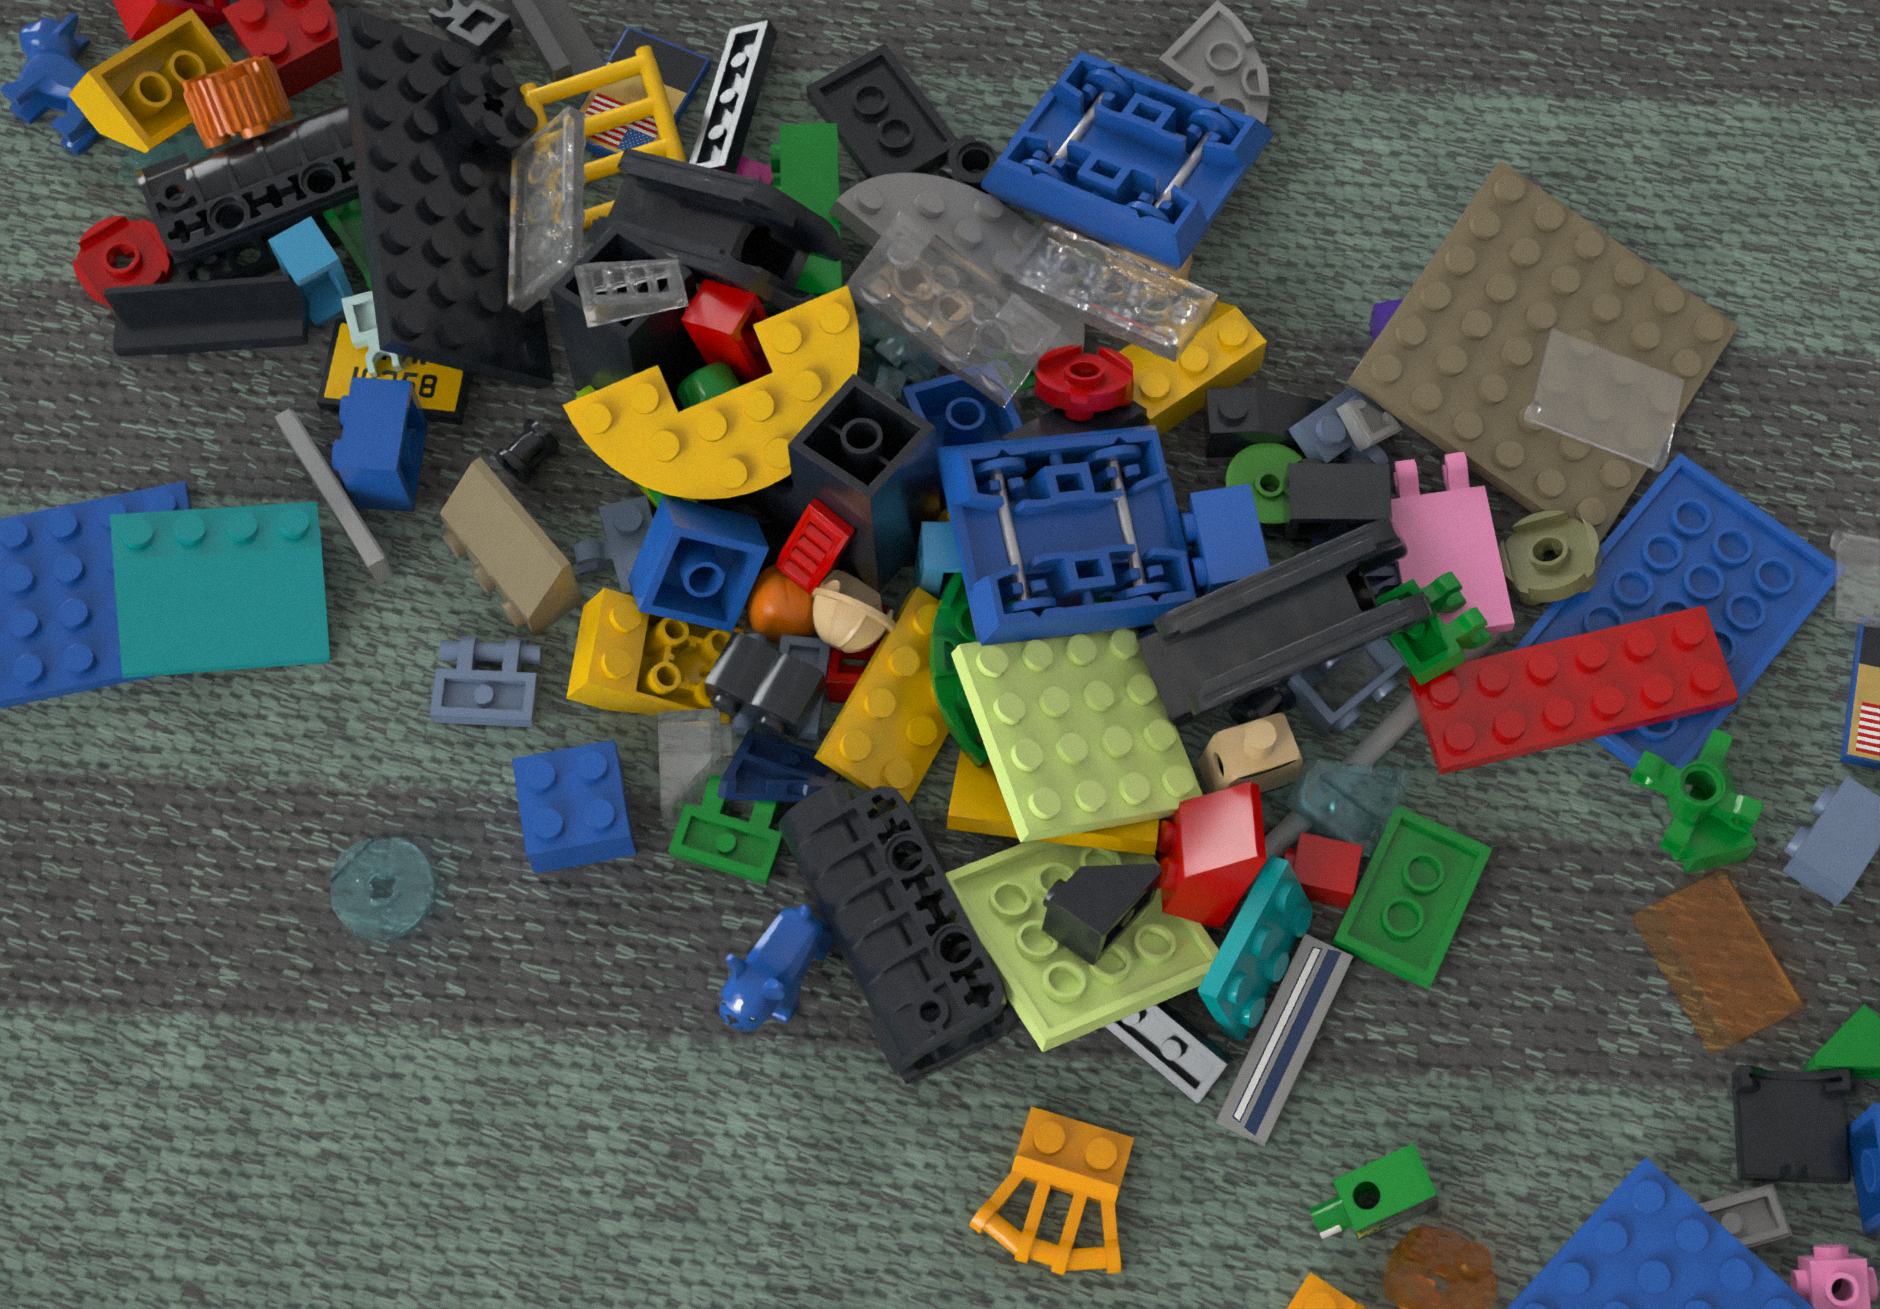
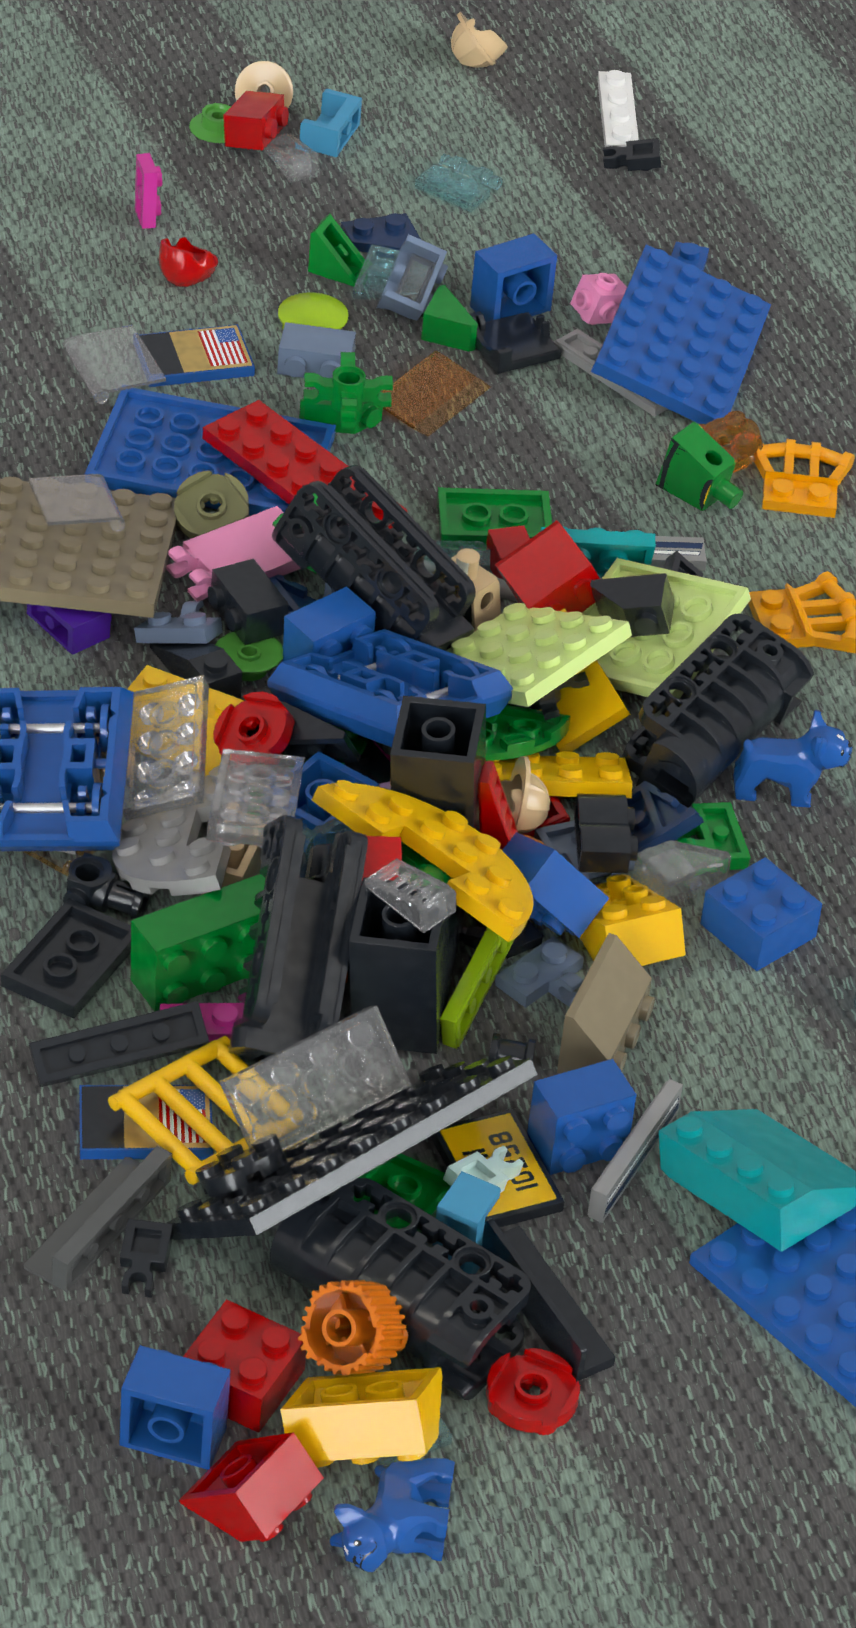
camera: 125 degrees left, 25 degrees down
(484, 695) = (716, 1000): sand blue plate -> none
(1367, 424) = (177, 604): light grey tile -> none

